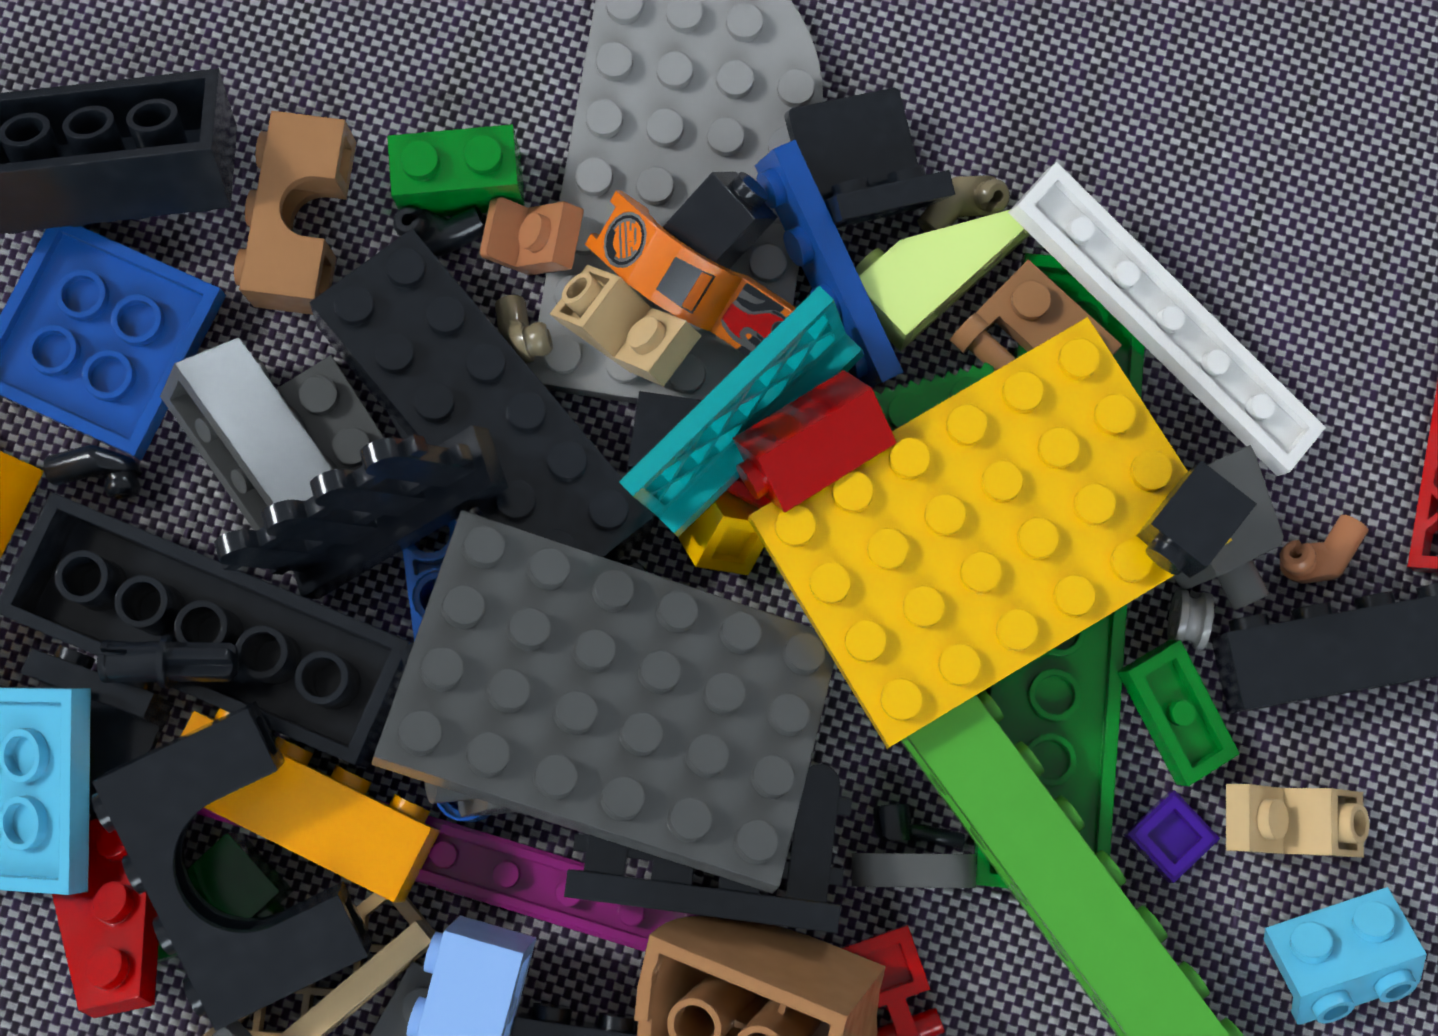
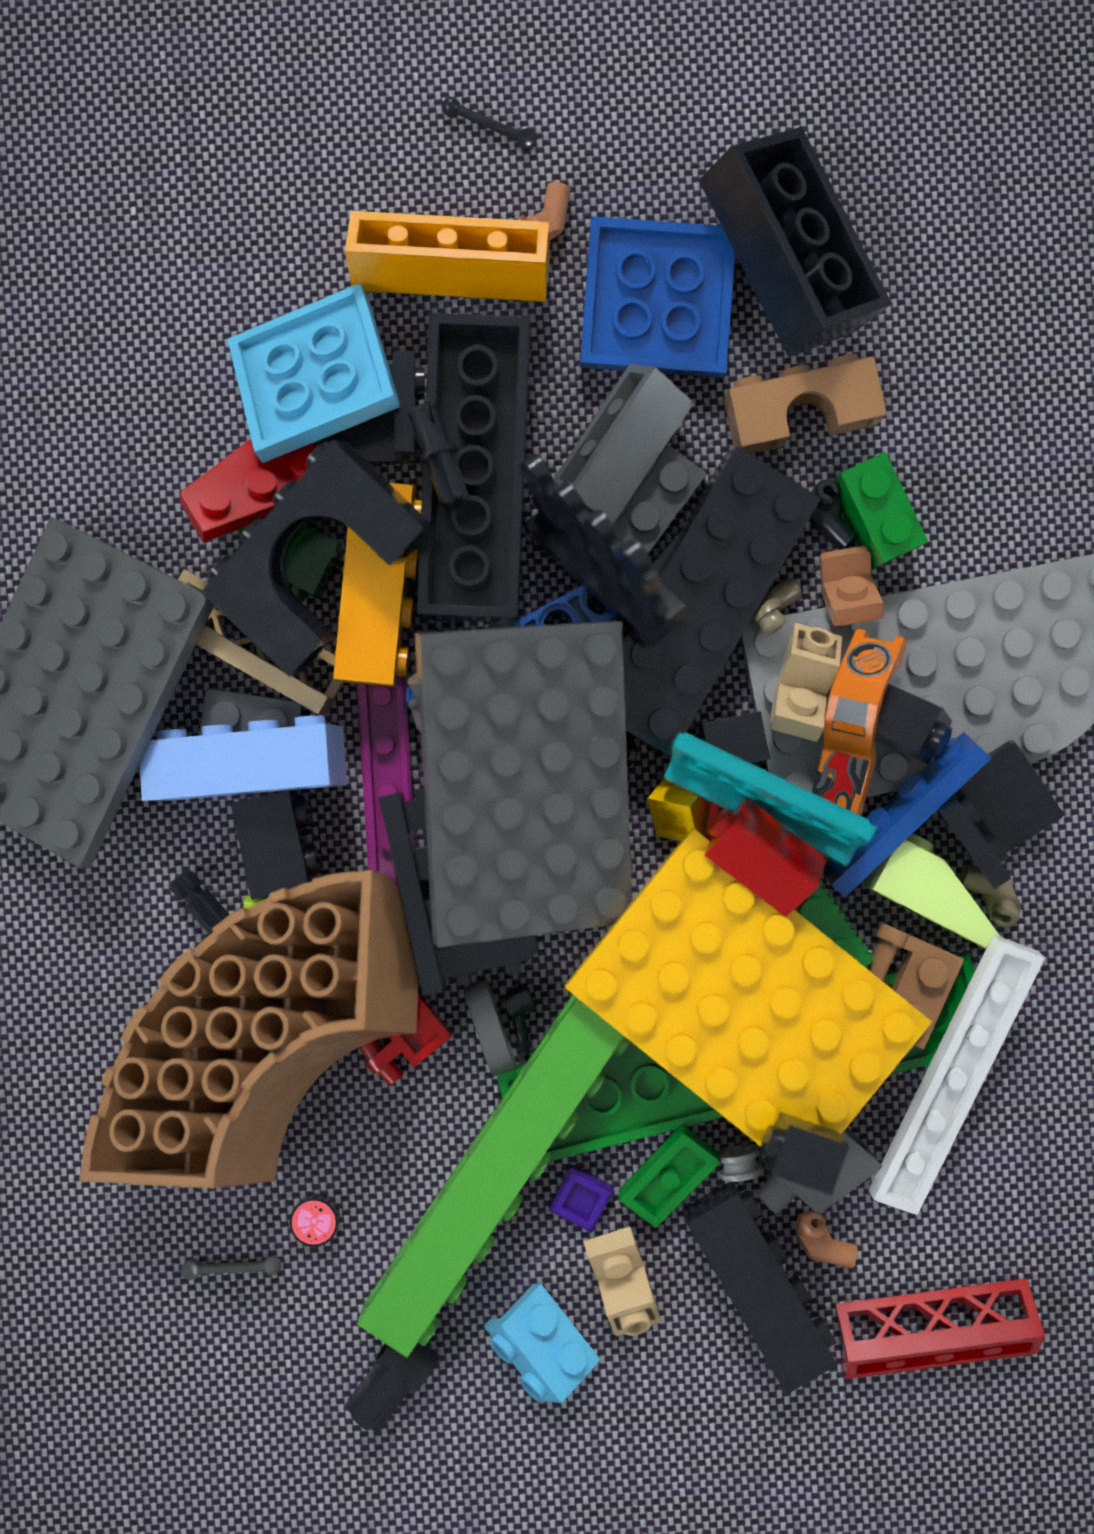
camera: 70 degrees right, 10 degrees up
(97, 462) = (566, 337): black arm -> none

